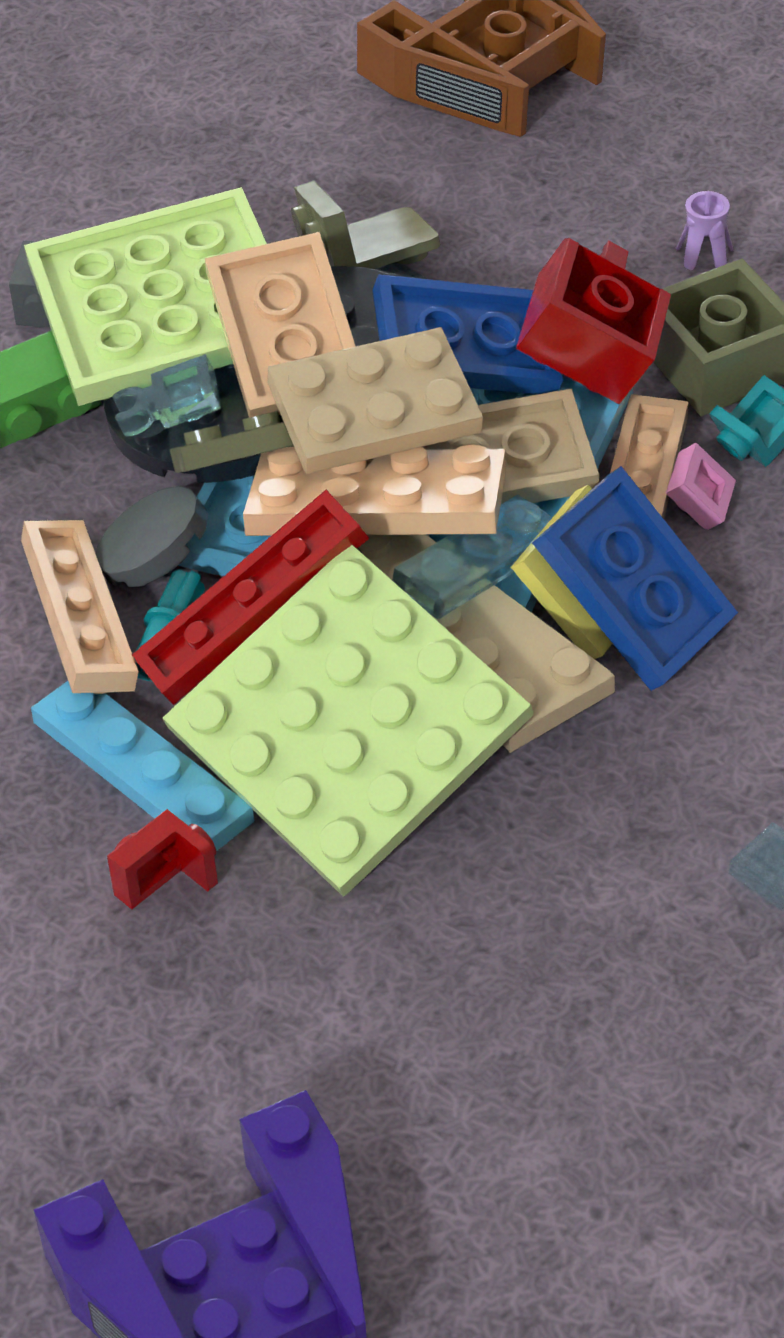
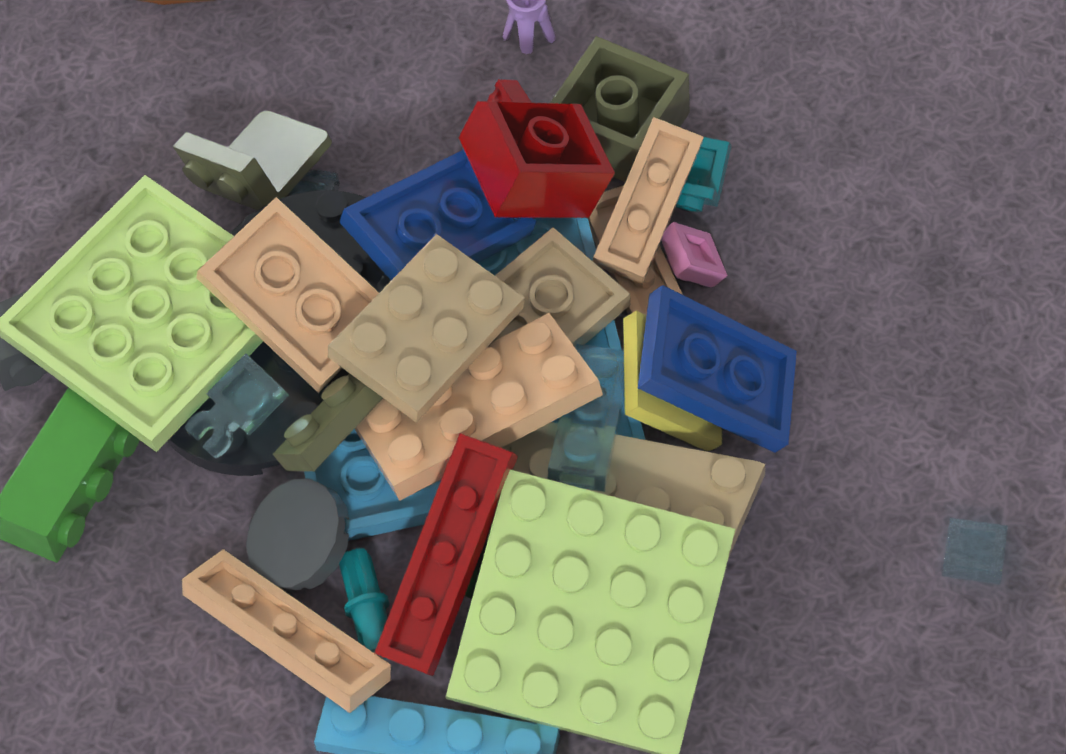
camera: 30 degrees left, 10 degrees up
(681, 408) = (647, 200): none -> light nougat plate

